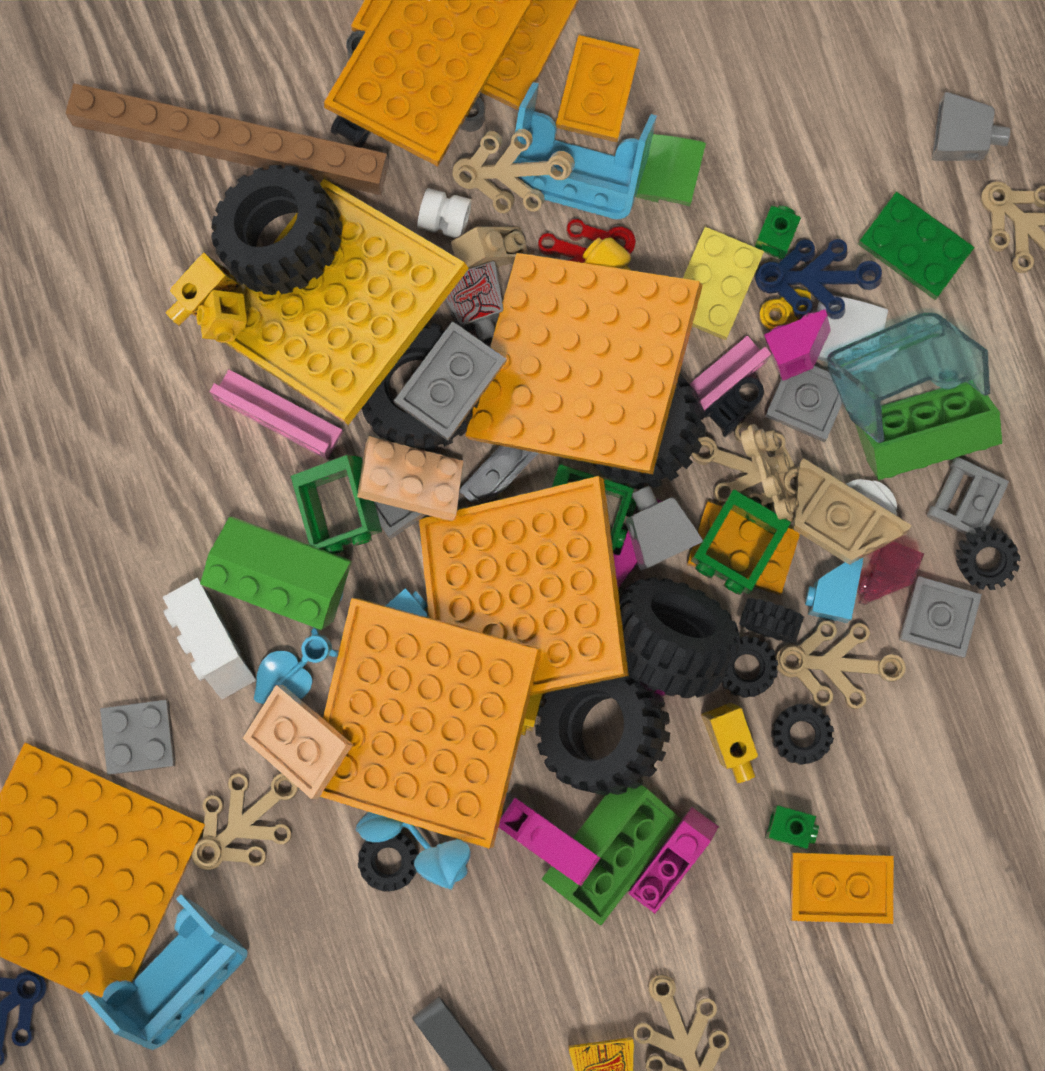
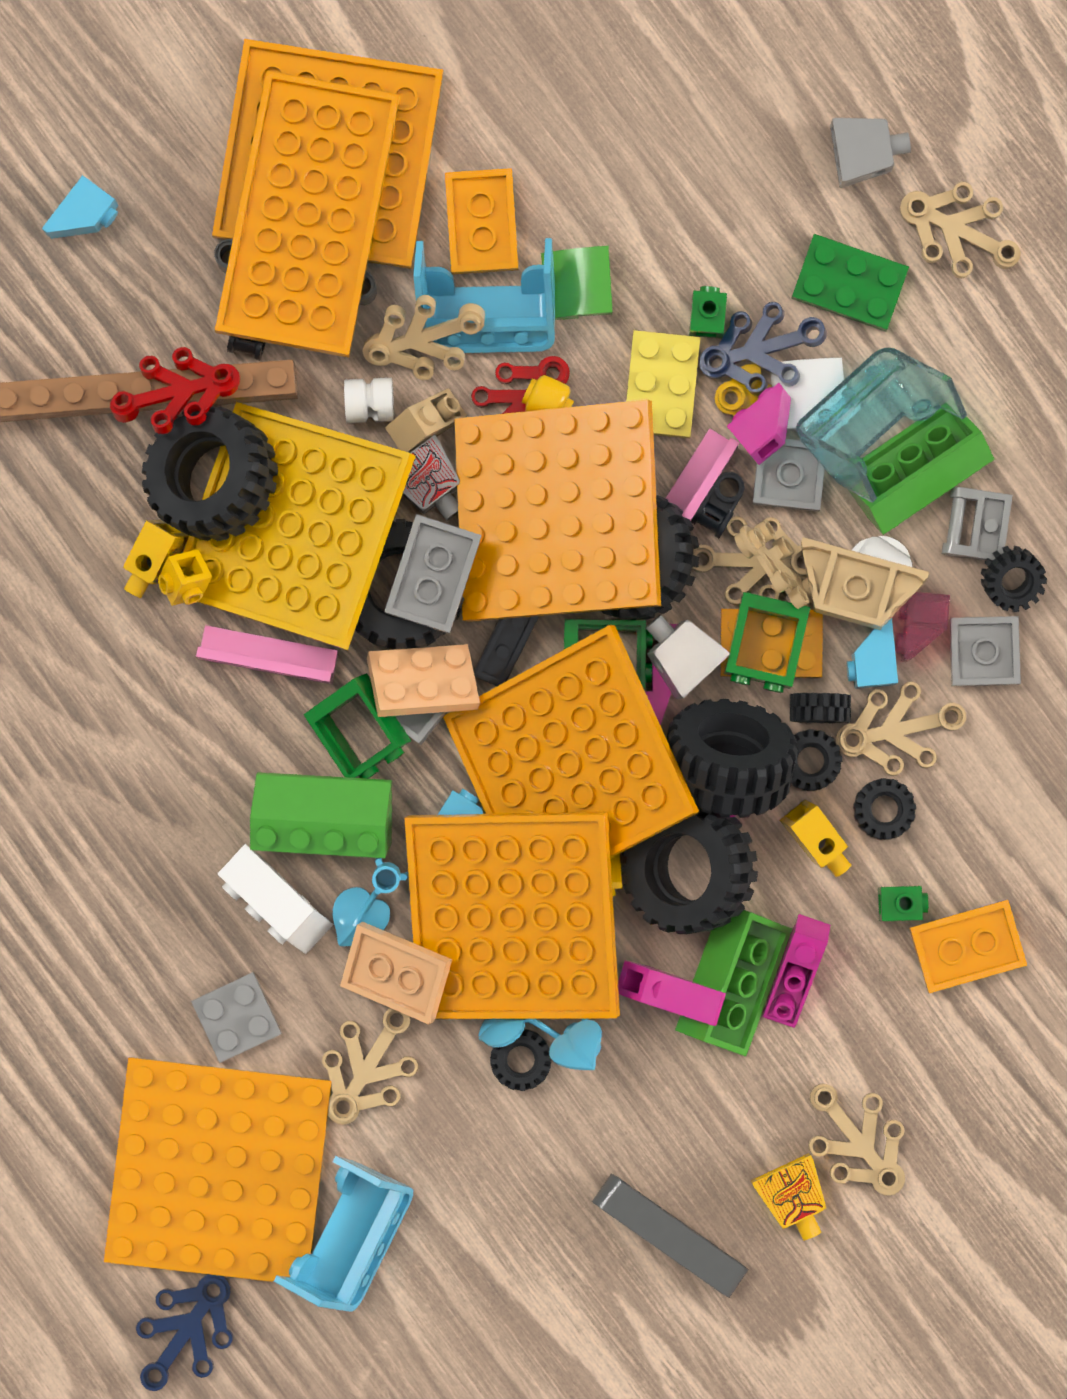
camera: 15 degrees left, 5 degrees up
(307, 148) = (179, 391): none -> red plant

